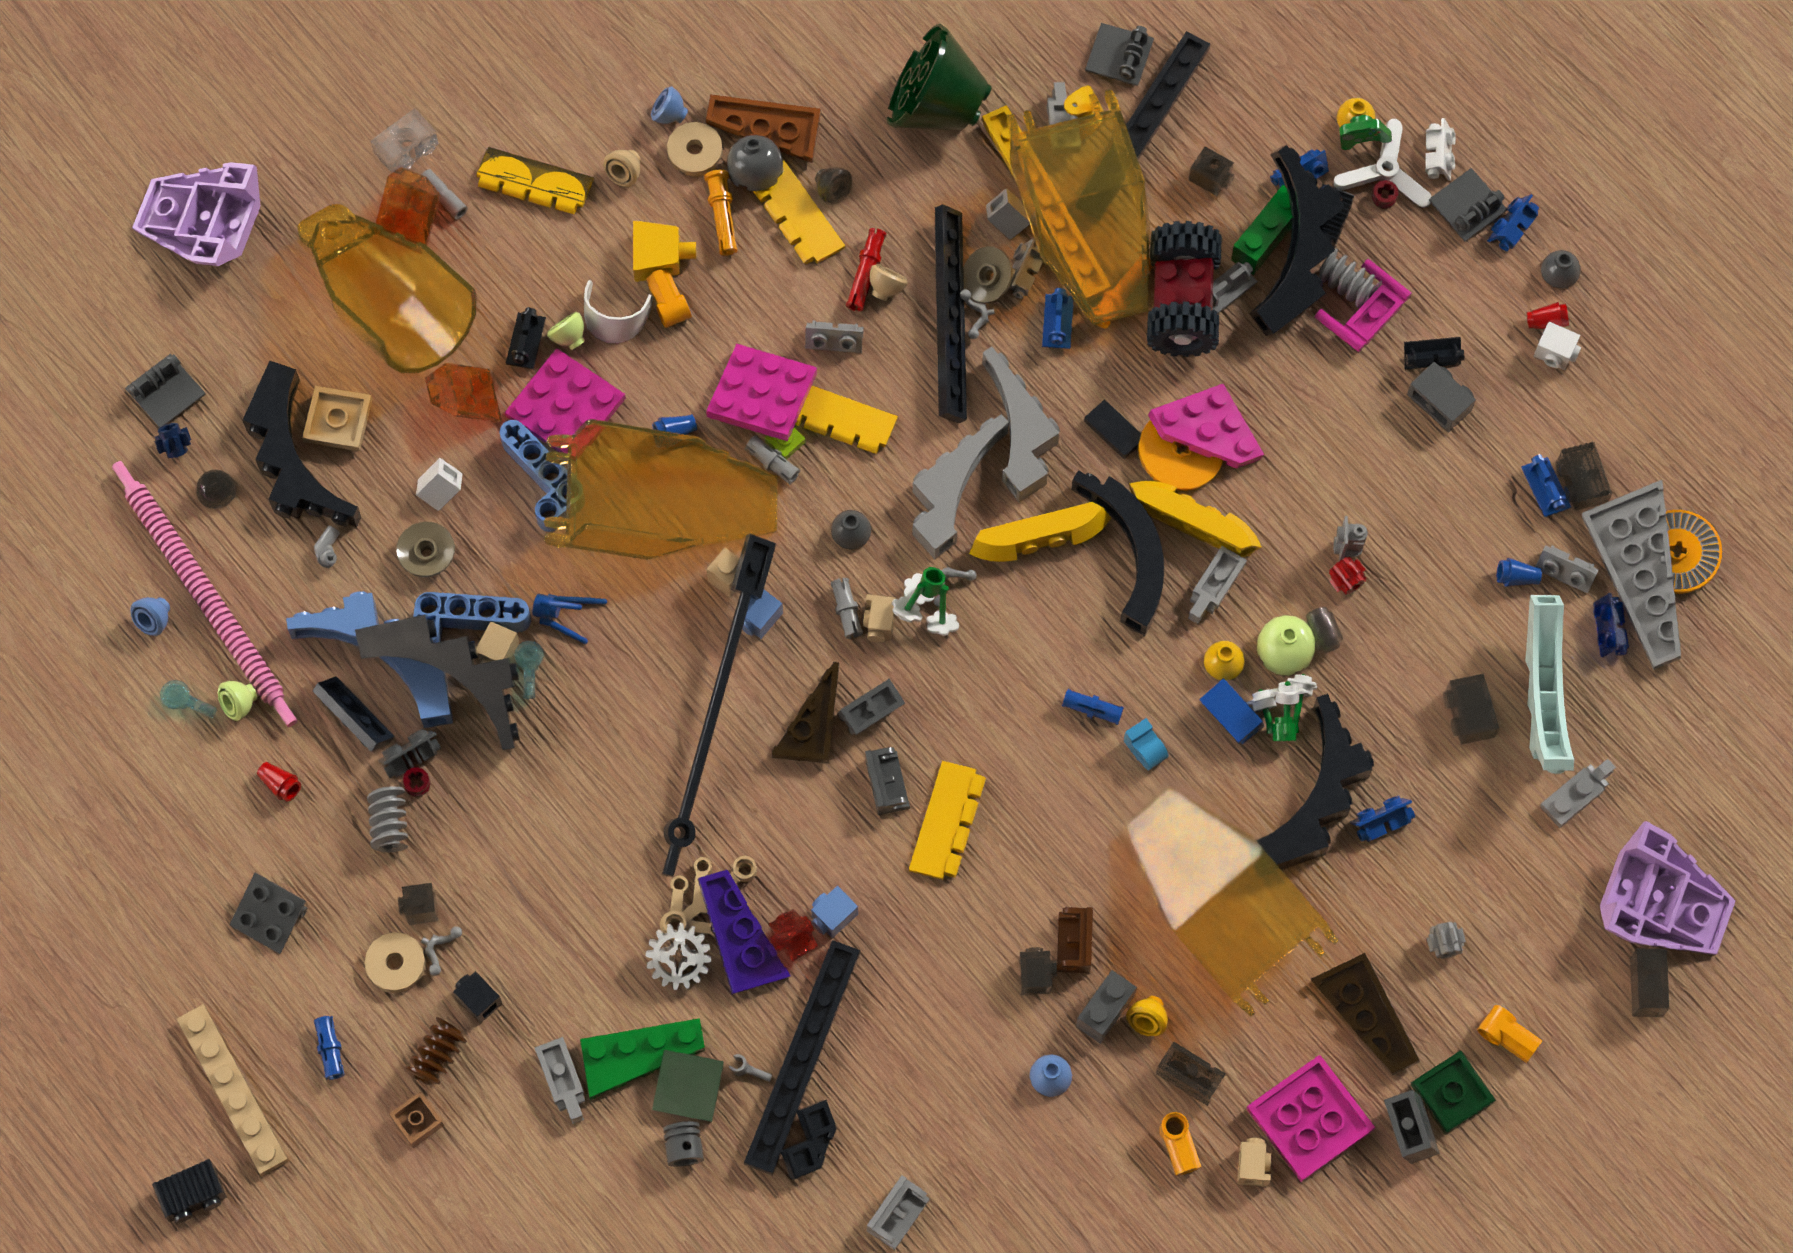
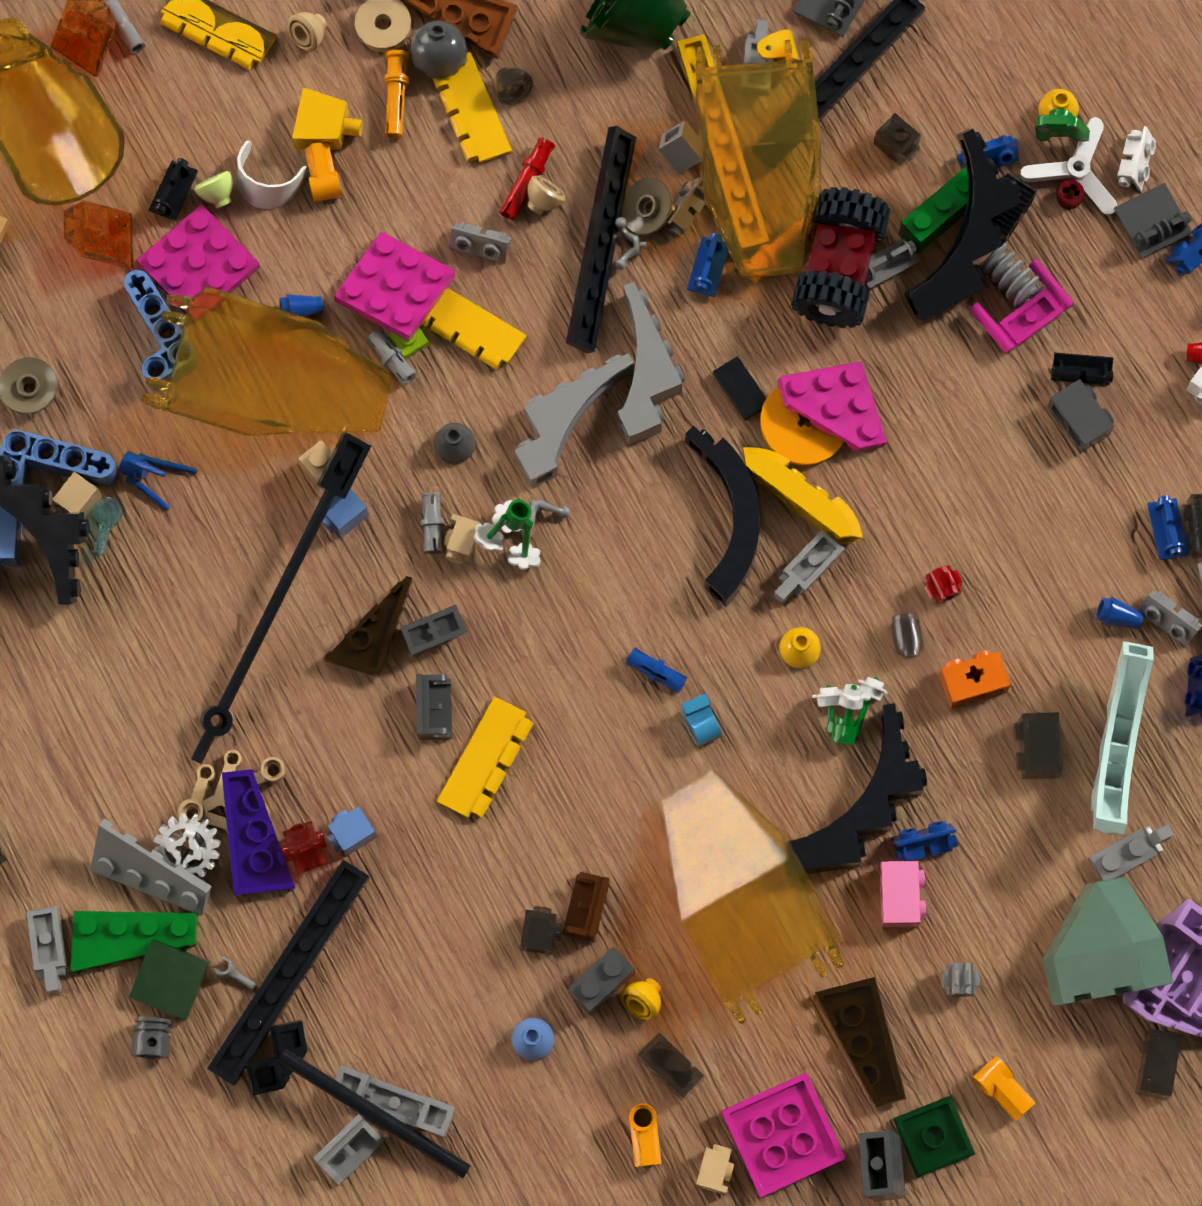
camera: 15 degrees right, 5 degrees up
(439, 484) = (56, 321): white panel -> none
(628, 983) = (134, 866): none -> light grey wing
(915, 1172) = (374, 1113): none -> black piece
(930, 1160) = (404, 1105): none -> light grey slope
(1049, 529) = (651, 480): yellow brick -> none
(1232, 712) = (795, 703): blue hinge -> none
(1286, 645) = (866, 643): yellowish green cylinder -> none
(1349, 539) = (952, 548): light grey hinge -> none
(1371, 871) = (901, 894): none -> bright pink brick
(1387, 671) = (962, 691): none -> orange brick
(1577, 881) = (1105, 946): none -> sand green panel

